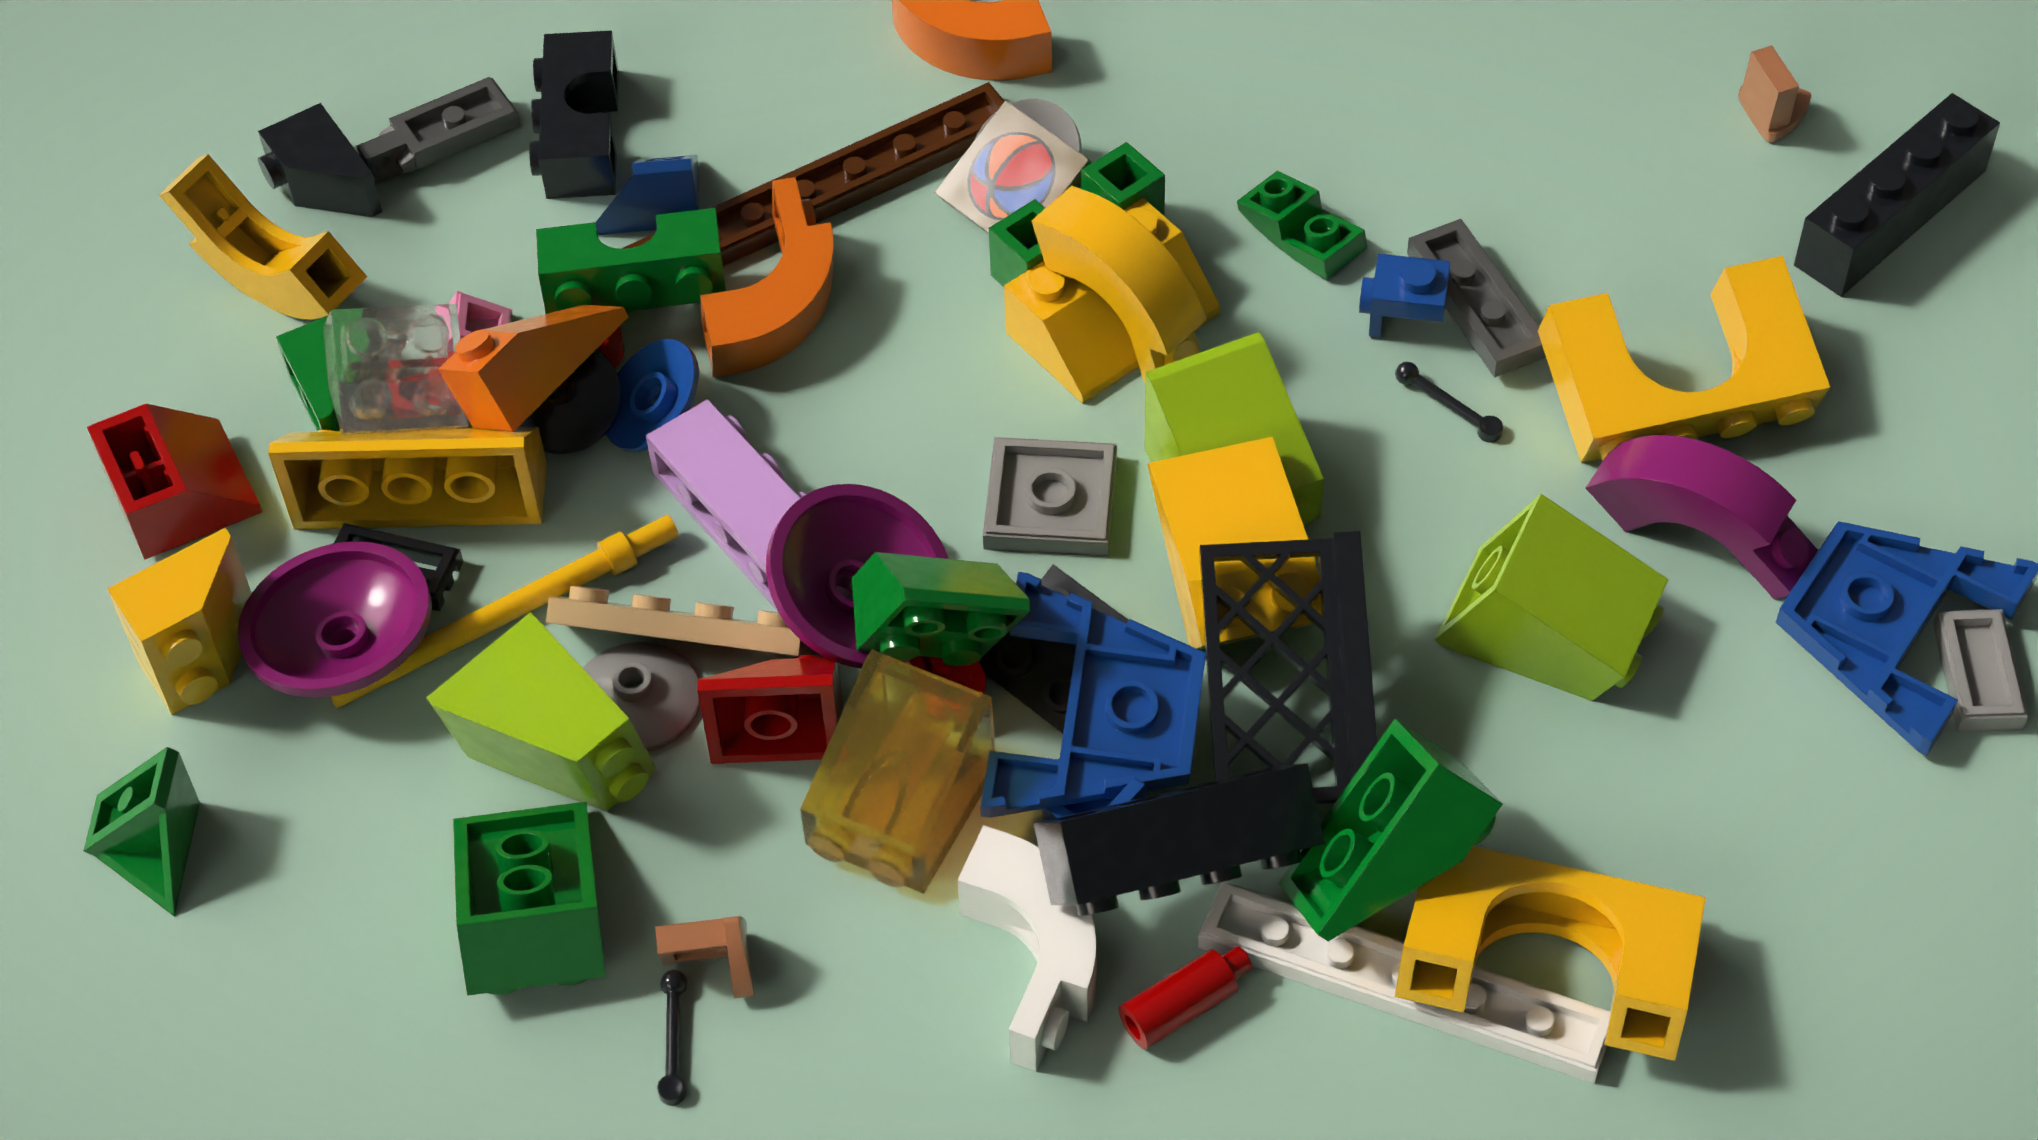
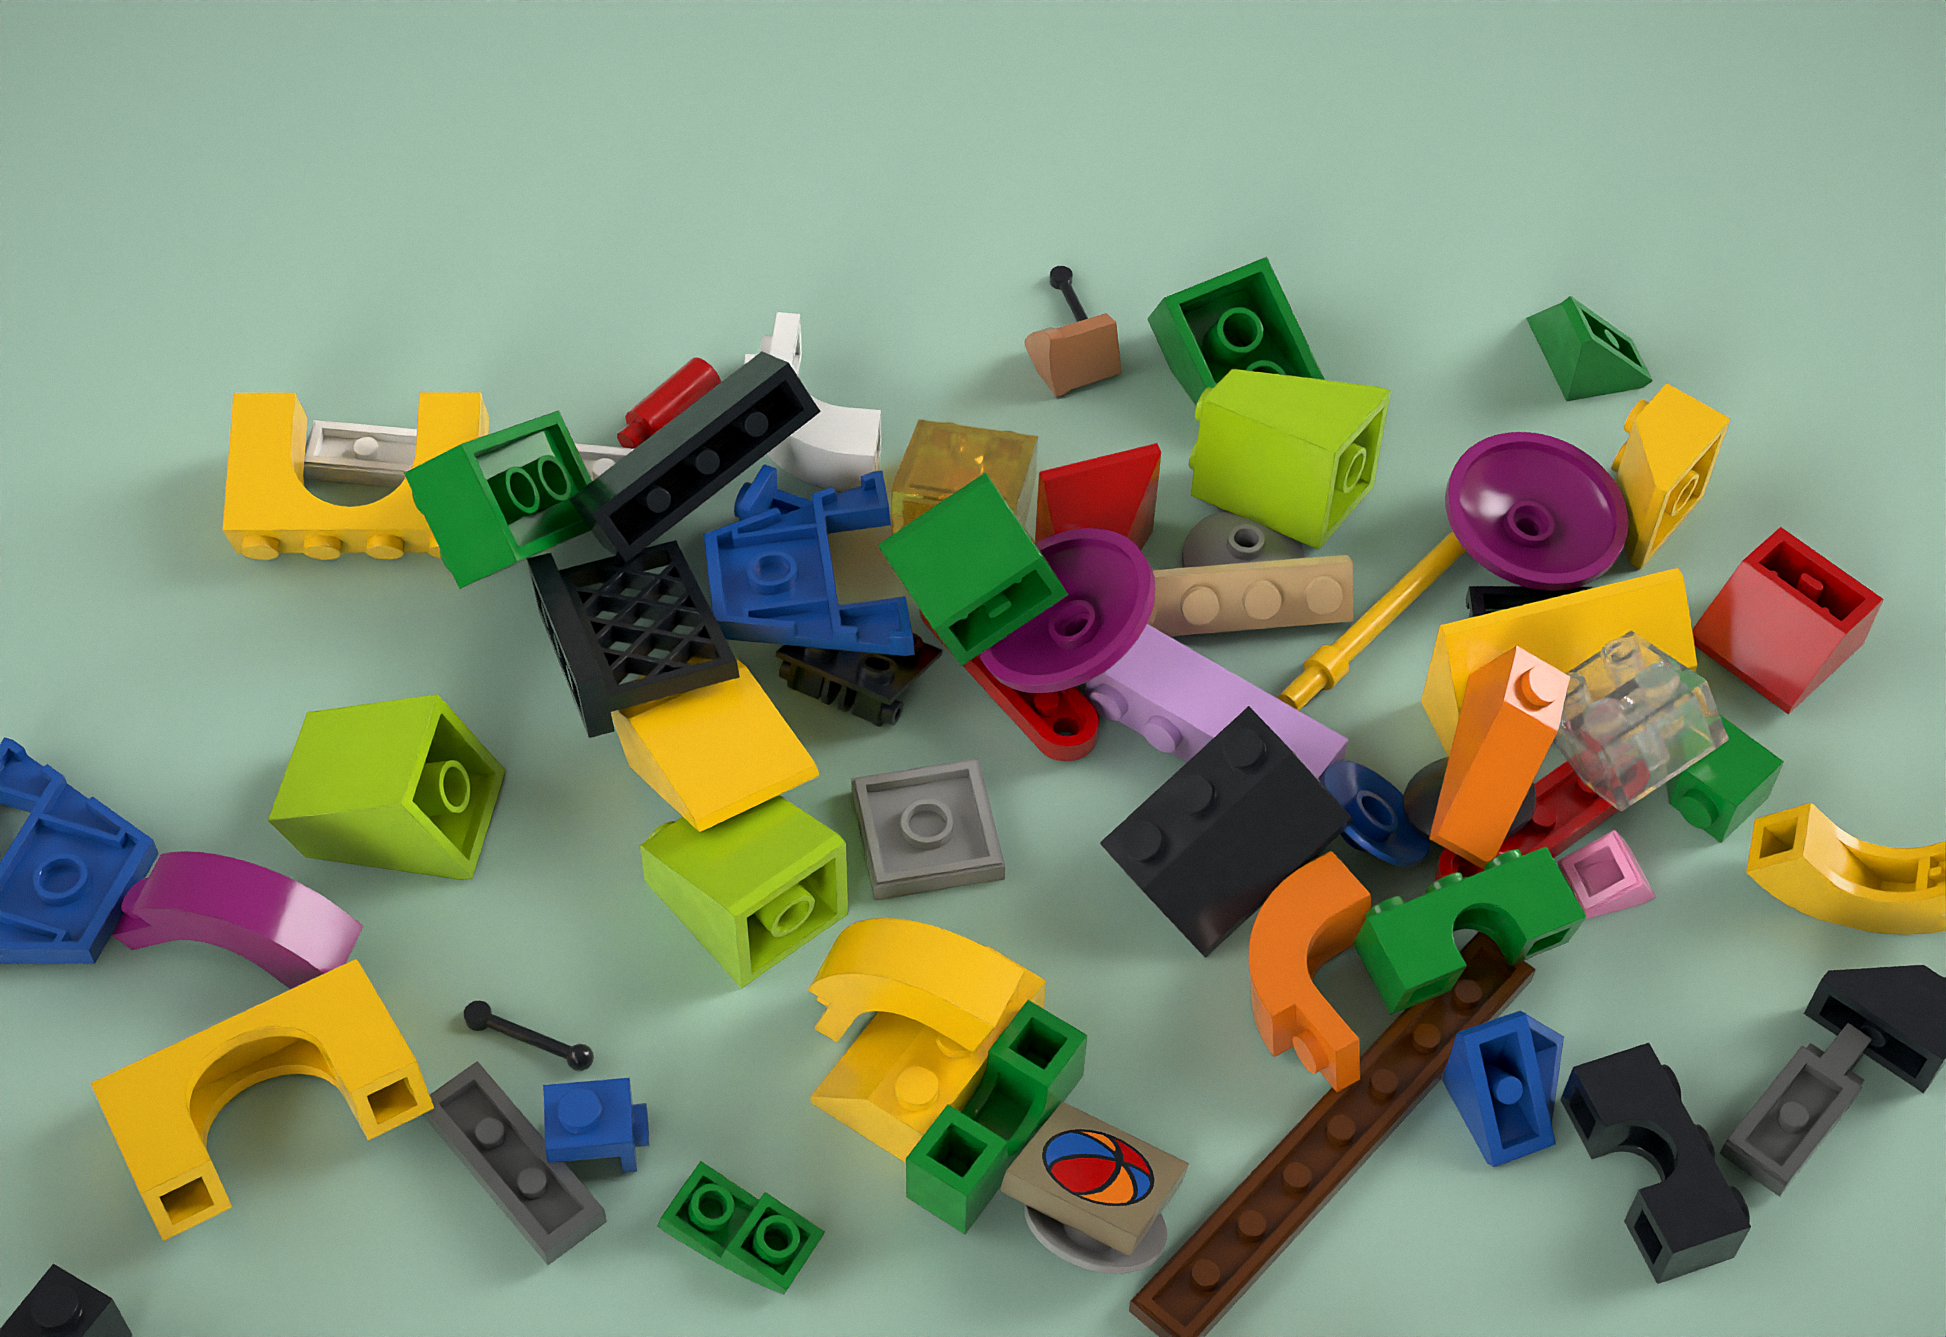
camera: 160 degrees right, 0 degrees up
(799, 389) = (1226, 831): none -> black slope

